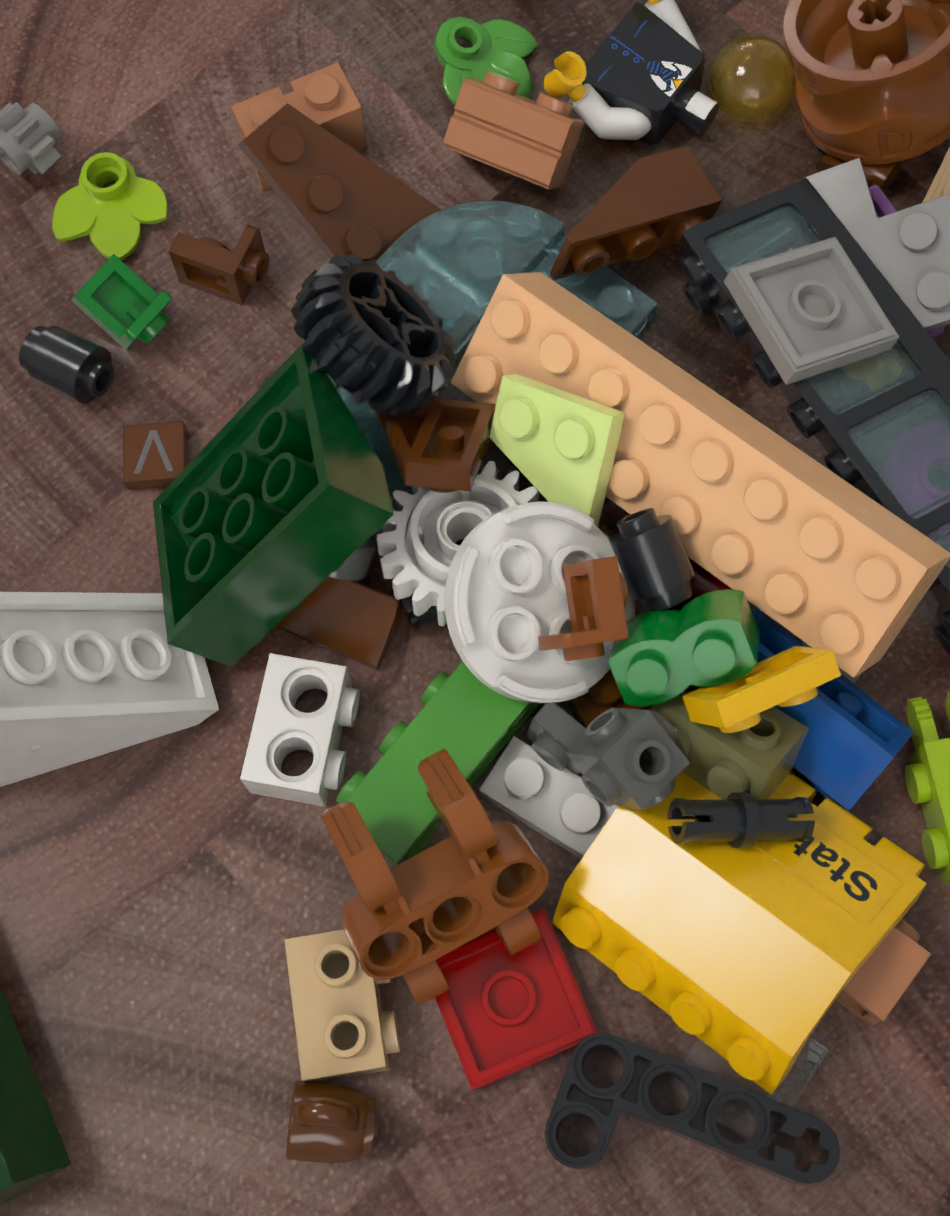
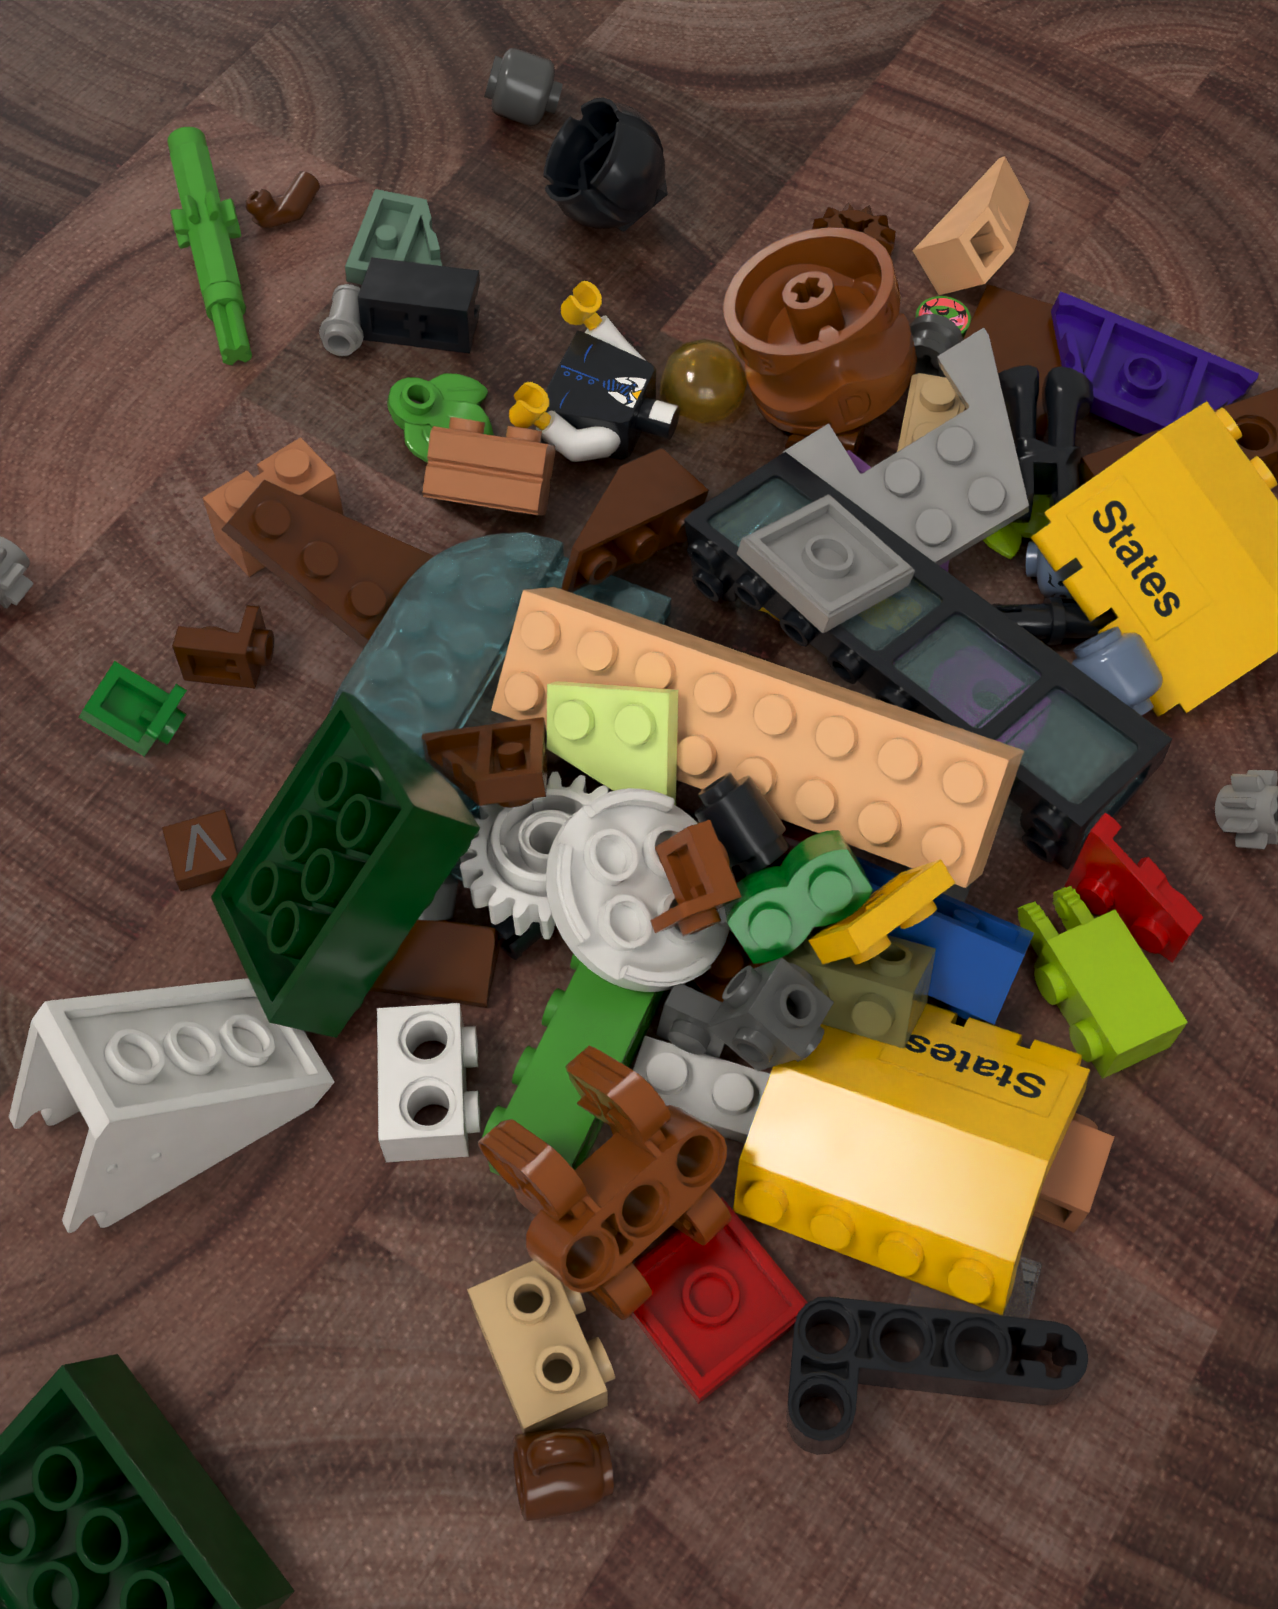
camera: 20 degrees left, 10 degrees down
(67, 363) = (88, 779): black brick -> none
(110, 213) = (97, 628): lime plate -> none
(373, 335) = (410, 672): black gear -> none
(740, 820) = (896, 1048): black pin -> none

